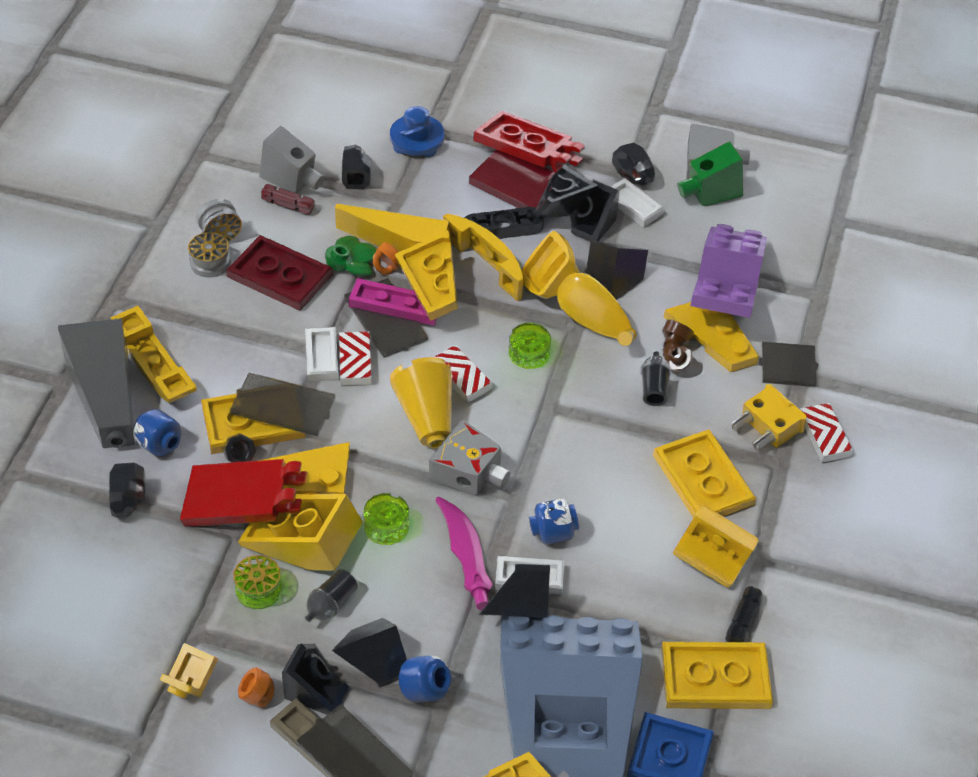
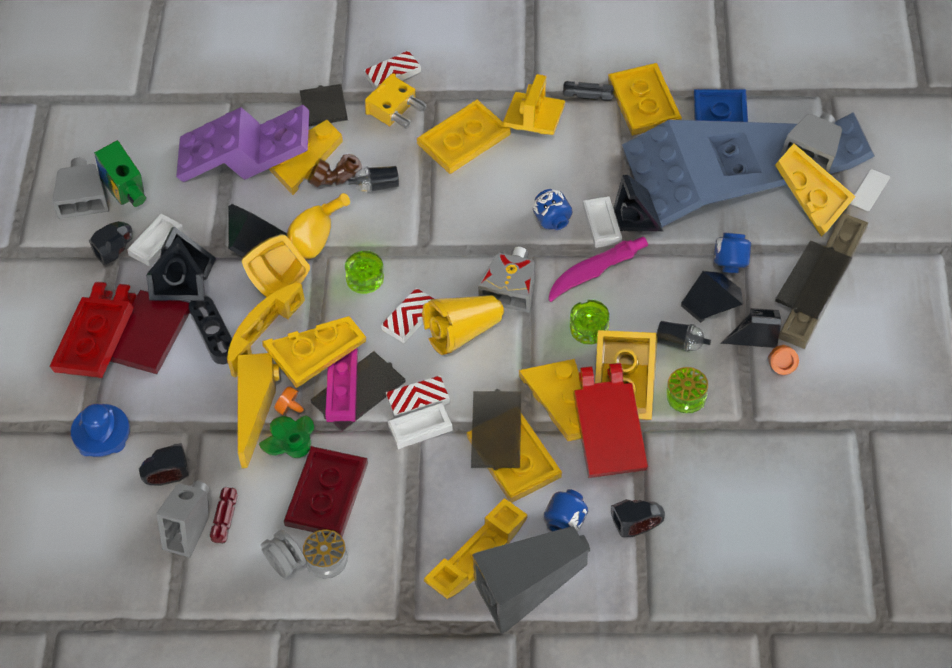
camera: 100 degrees left, 5 degrees up
(190, 672) = (792, 406): yellow bracket -> none
(239, 448) = (558, 446): black tile -> none

